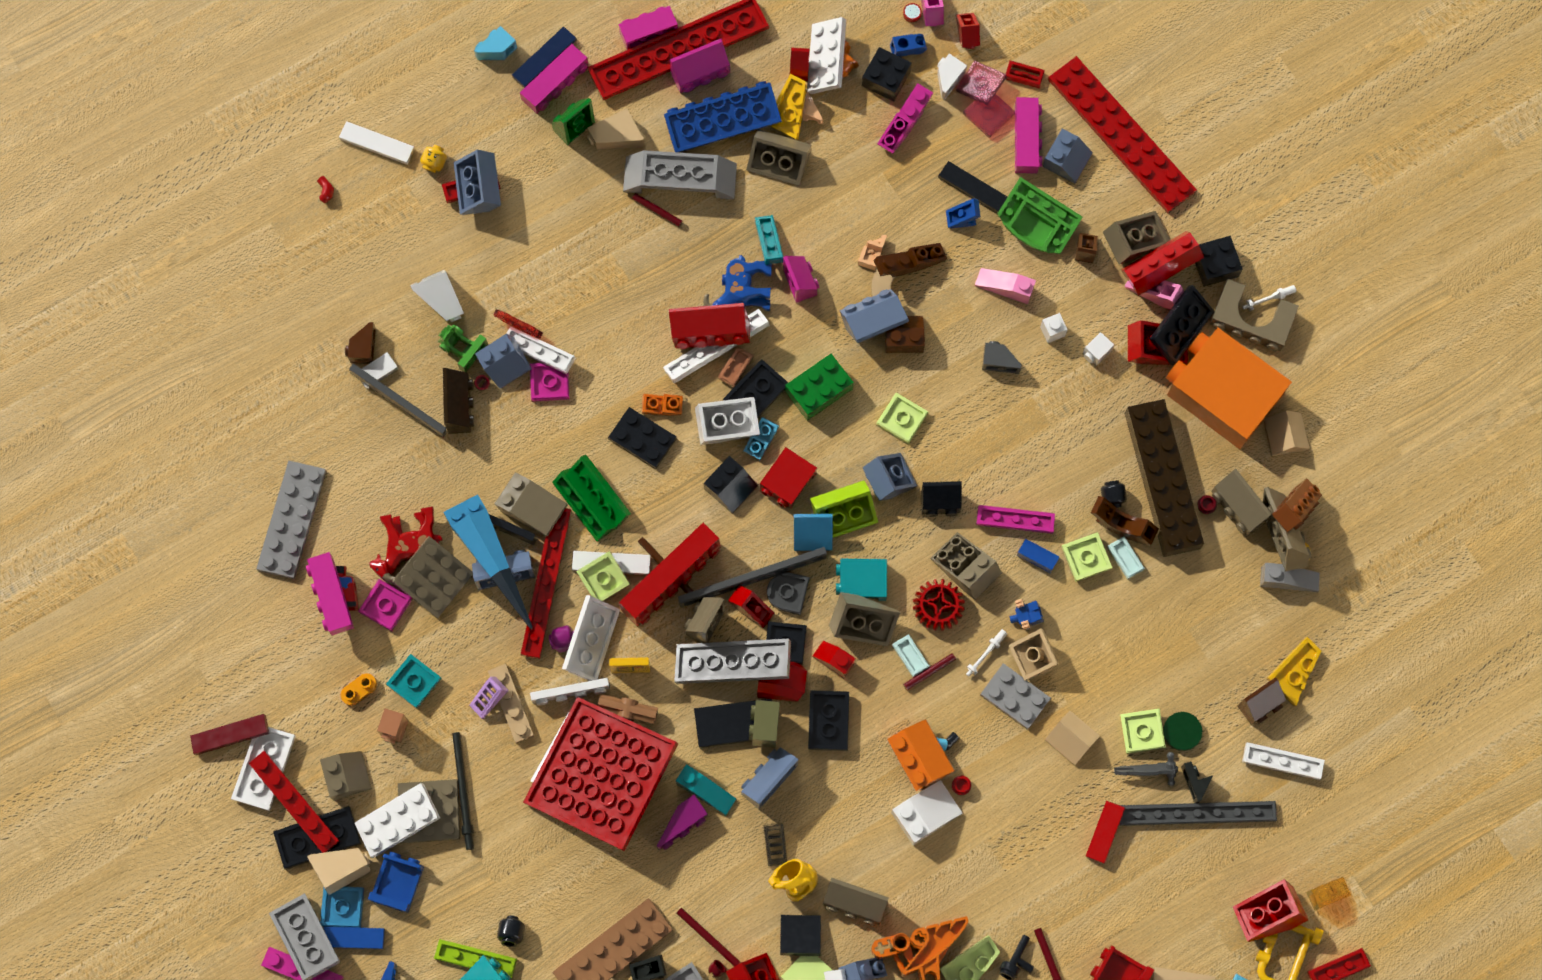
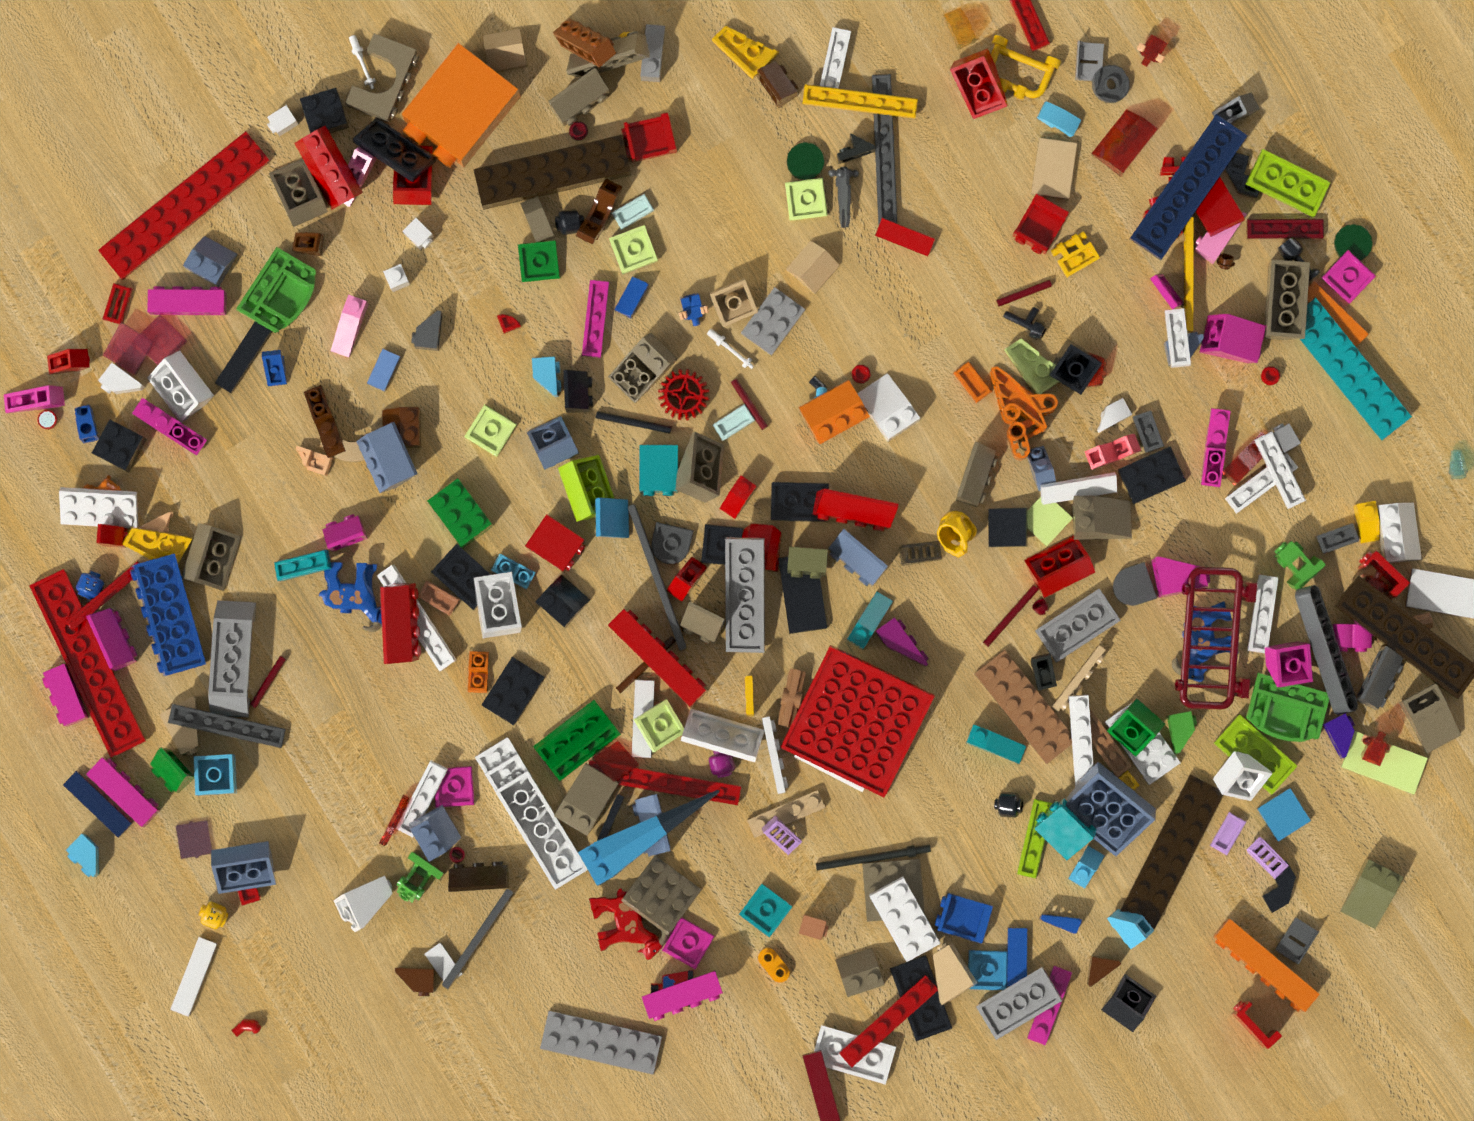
camera: 85 degrees left, 10 degrees up
(507, 143) = (194, 839): none -> piece
(521, 452) = (531, 813): none -> white slope
(567, 159) = (215, 774): none -> medium azure brick
(568, 534) = (615, 761): none -> clear red piece
(574, 918) = (995, 744): none -> teal slope
(614, 169) = (226, 726): none -> dark grey tile
(737, 56) = (105, 595): none -> red axle
(752, 48) = (89, 585): none -> blue head
(819, 773) = (854, 509): none -> red slope
(910, 556) = (633, 422): none -> black bar
(945, 129) = (180, 386): none -> white slope
(953, 901) = (972, 382): none -> orange tile
(959, 469) = (545, 373): none -> medium azure slope
(962, 317) = (383, 370): none -> medium blue tile
(1010, 435) = (508, 323): none -> red tile
(1073, 464) = (538, 261): none -> green plate
(1115, 462) = (537, 219): none -> dark tan slope
(1201, 573) = (649, 138): none -> red panel
(1207, 222) = (281, 121): none -> white brick
(1247, 787) = (859, 101): none -> yellow tile

